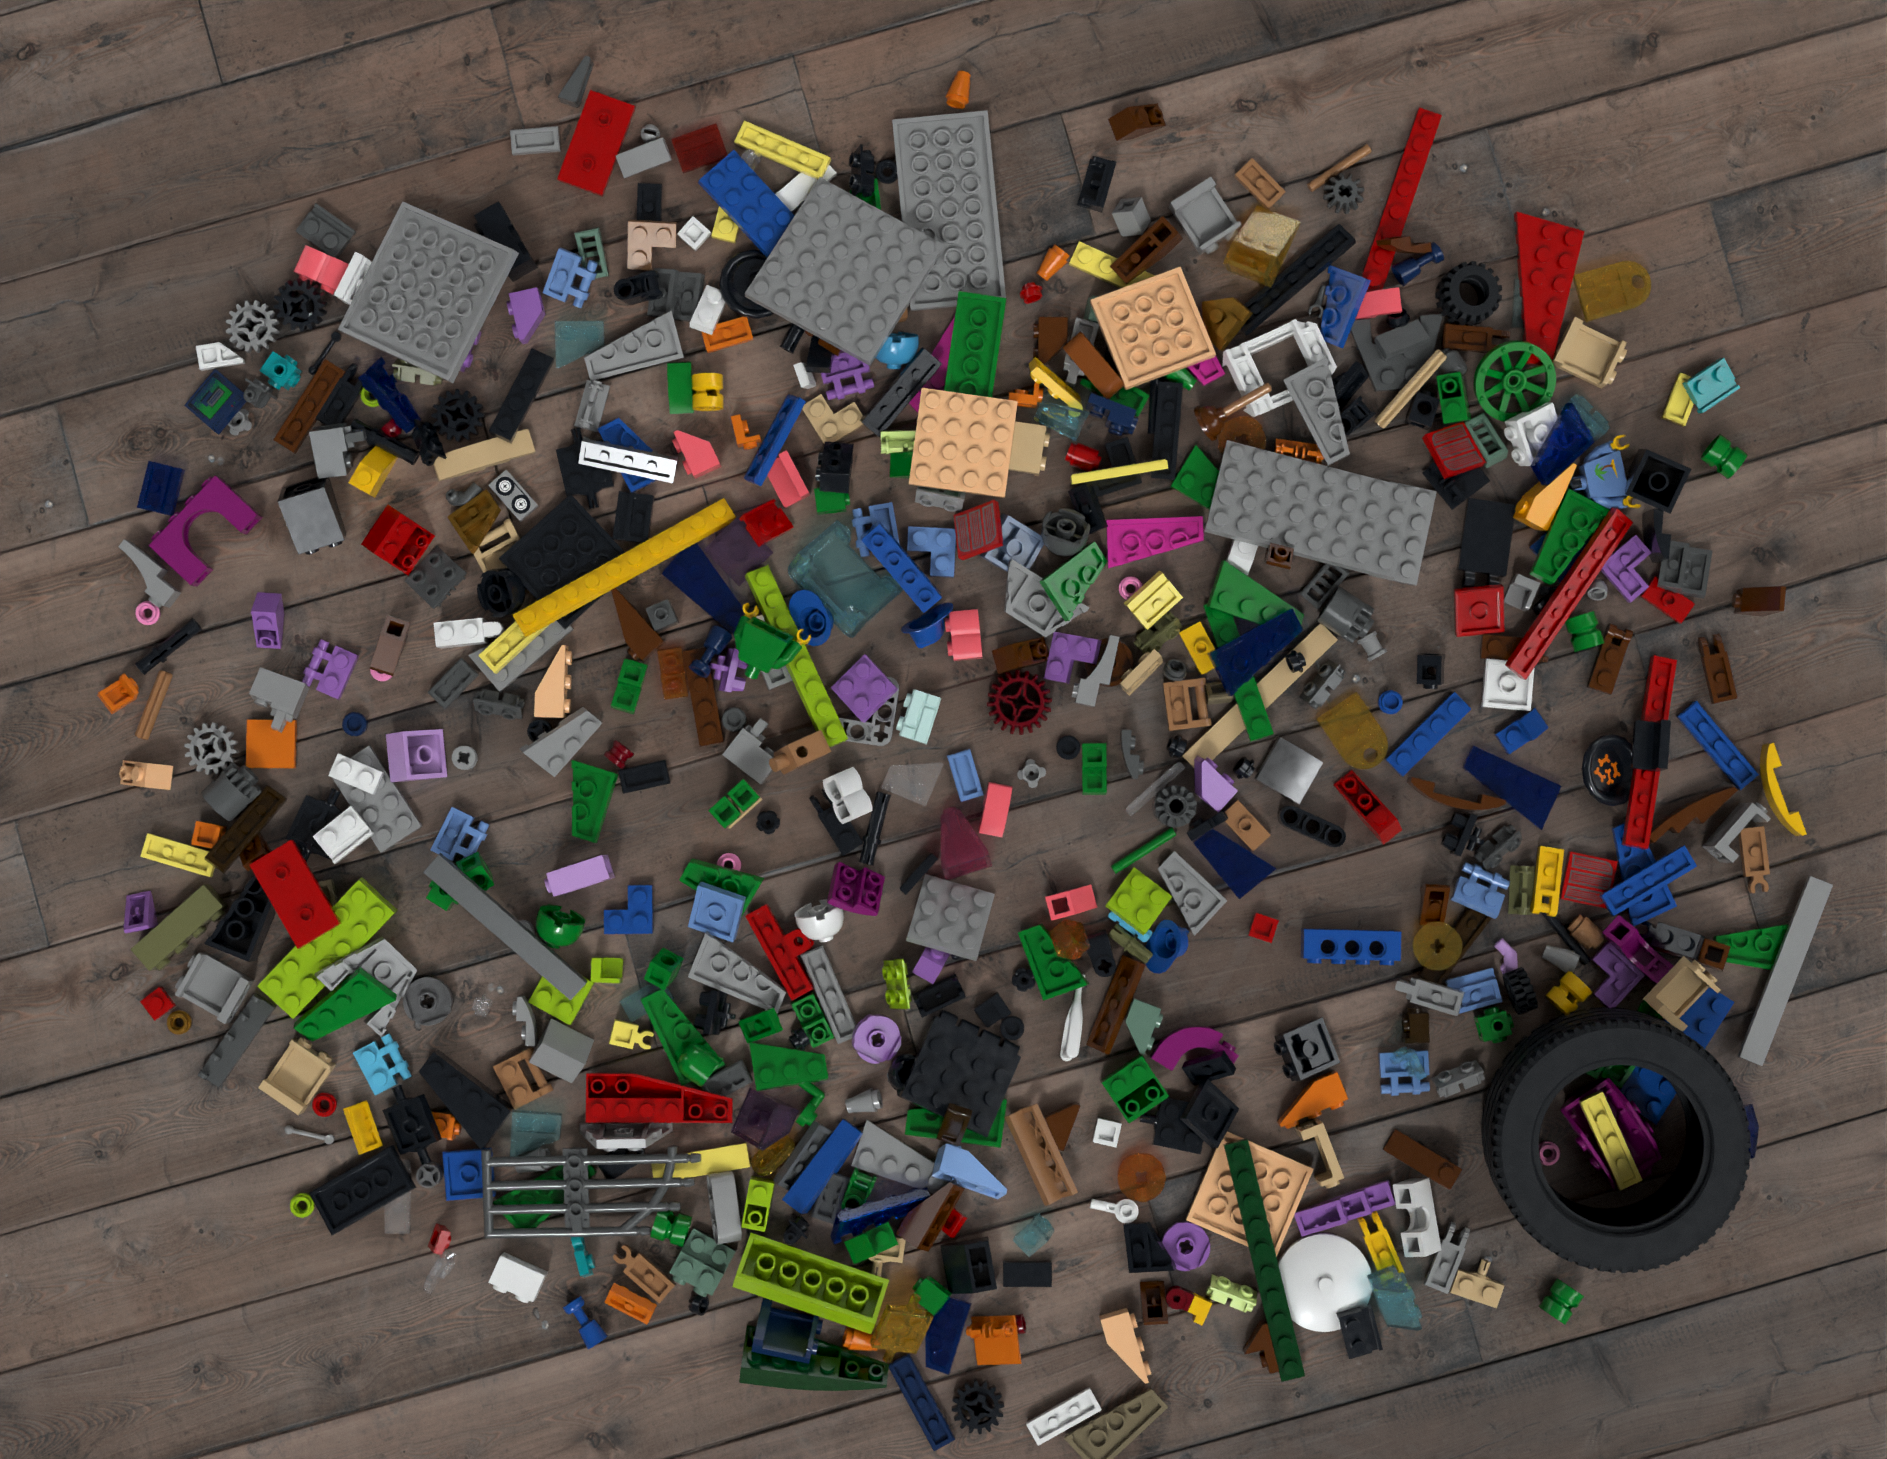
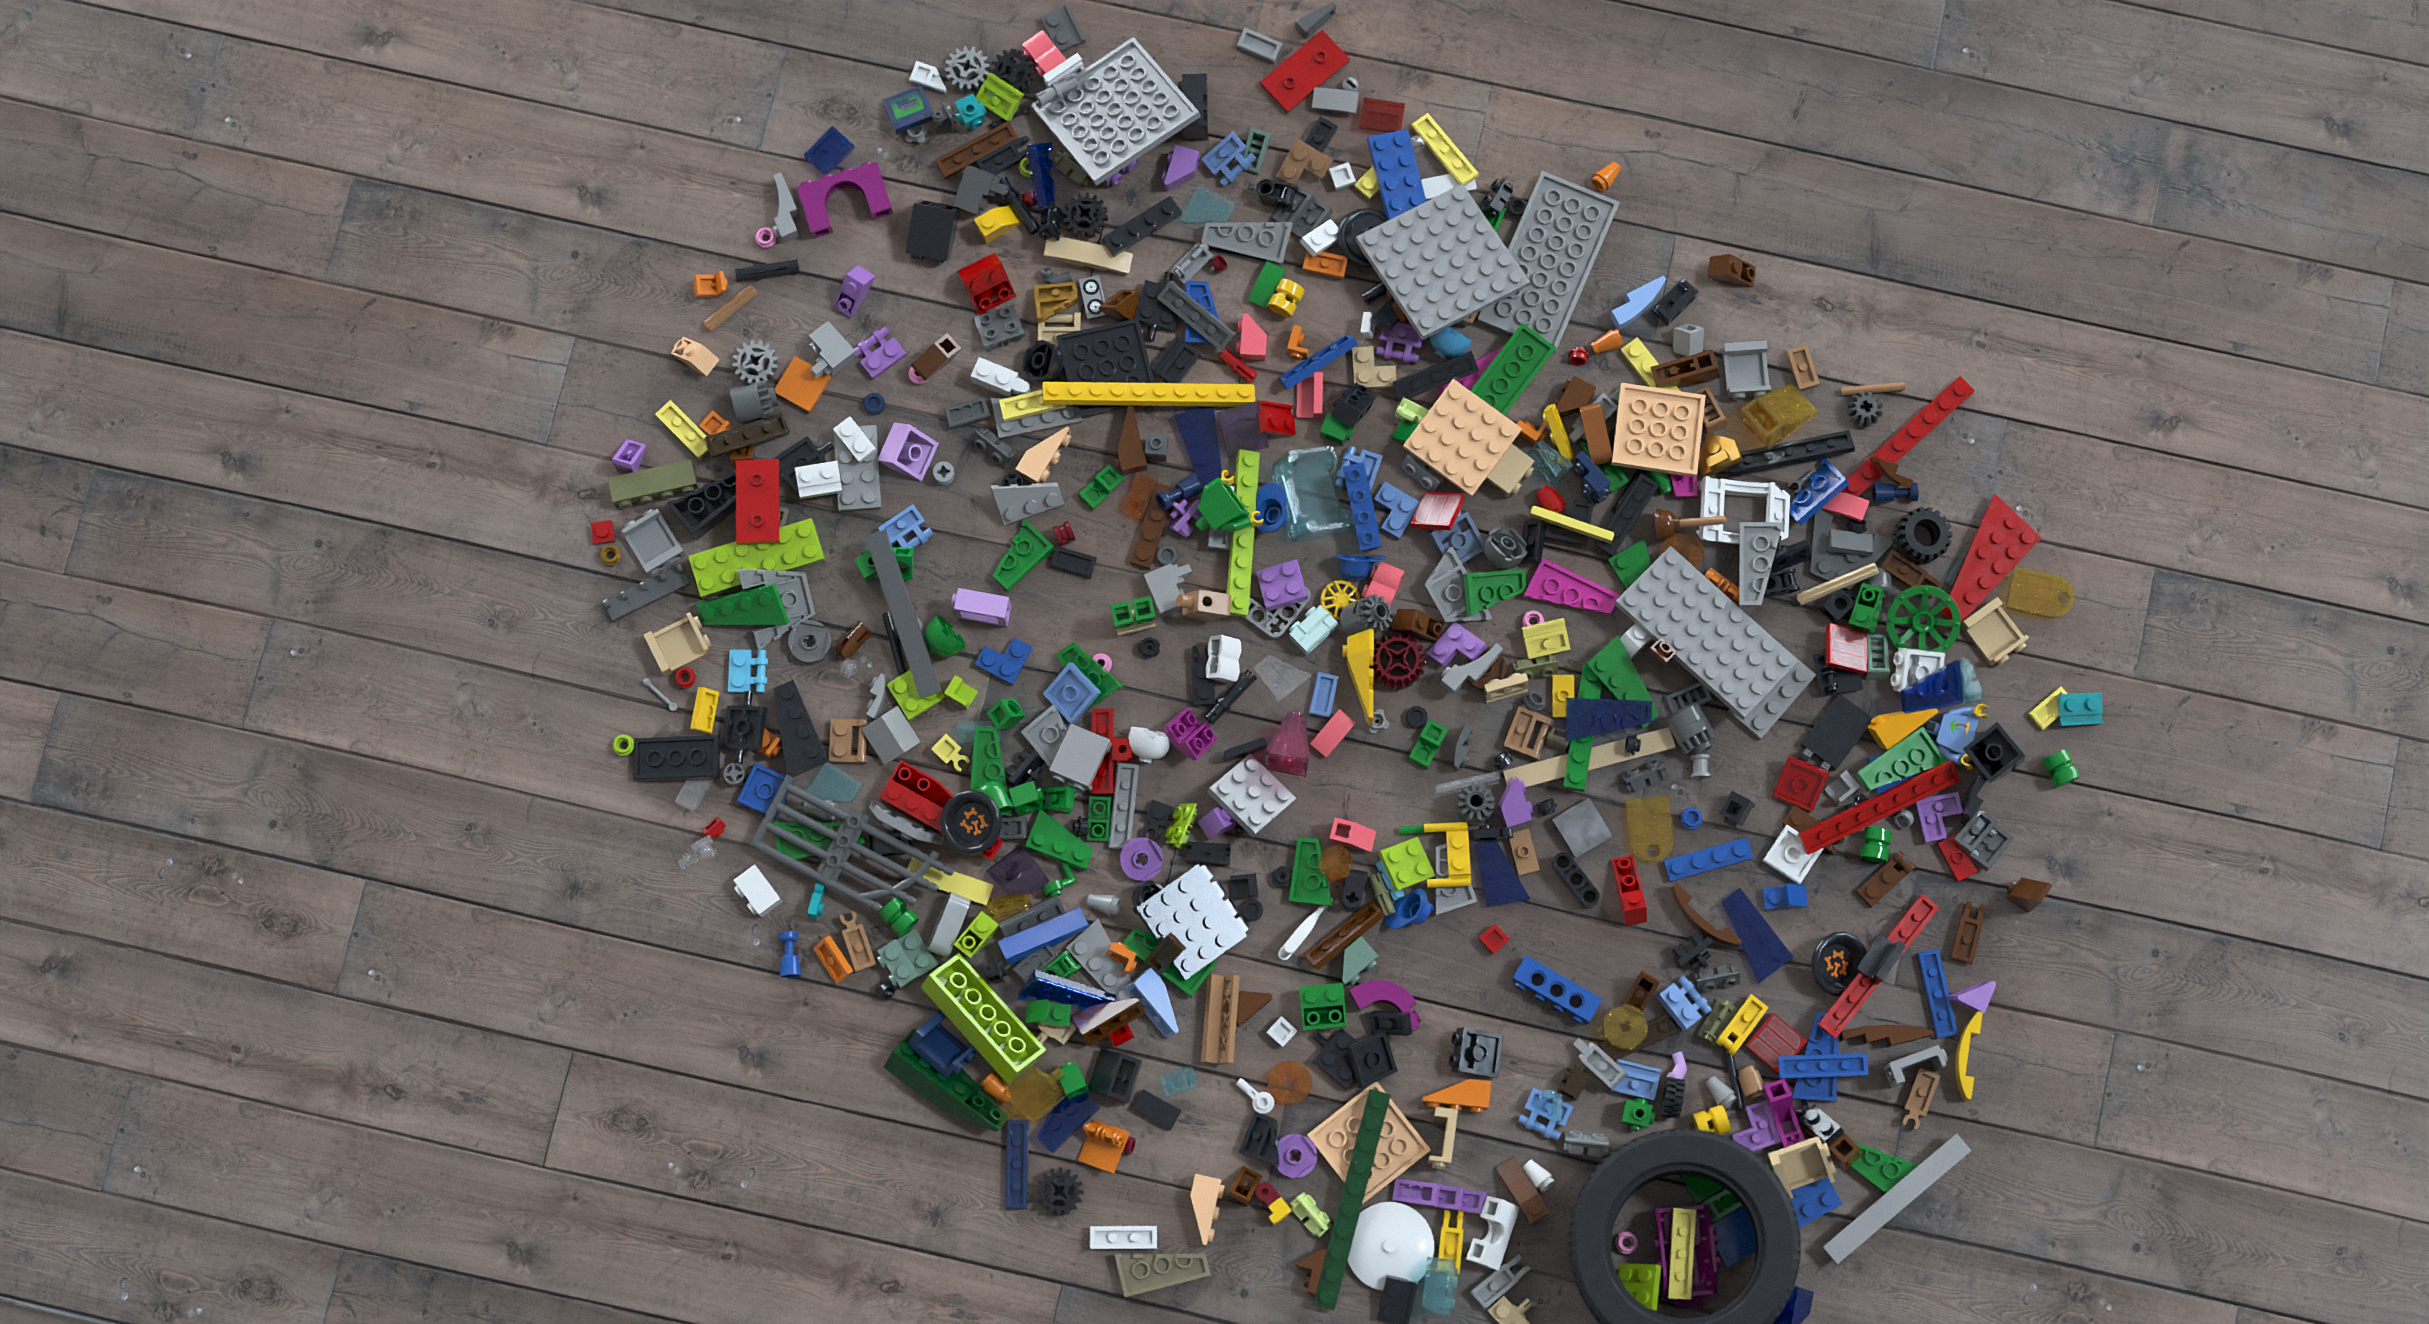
camera: 30 degrees right, 10 degrees down
(301, 338) = (999, 96): none -> lime plate
(356, 301) = (1057, 90): none -> light grey pin
(470, 976) = (853, 640): none -> reddish brown hinge
(513, 957) = (894, 643): none -> black bar
(546, 488) = (1122, 305): none -> reddish brown slope
(620, 392) = (1219, 264): none -> dark red hinge
(691, 1102) = (970, 822): none -> black piece
(697, 487) = (1237, 365): none -> red axle
(731, 1041) = (1026, 798): none -> green brick
(761, 974) = (1079, 757): none -> light grey panel
(868, 985) = (1157, 816): none -> black plate
(908, 1144) = (1122, 954): none -> orange bracket
(929, 670) = (1339, 598): none -> yellow wheel
(965, 677) = (1365, 615): none -> dark grey gear
(984, 725) = (1359, 657): none -> yellow wedge
(1060, 206) = (1636, 303): none -> light blue slope
(1183, 865) = (1457, 854): none -> yellow plate
(1208, 283) = (1716, 420): none -> medium nougat slope
(1429, 1136) = (1538, 1176): none -> white cone
(1586, 1194) = (1641, 1282): none -> lime plate
(1757, 729) = (1975, 997): none -> medium lavender slope

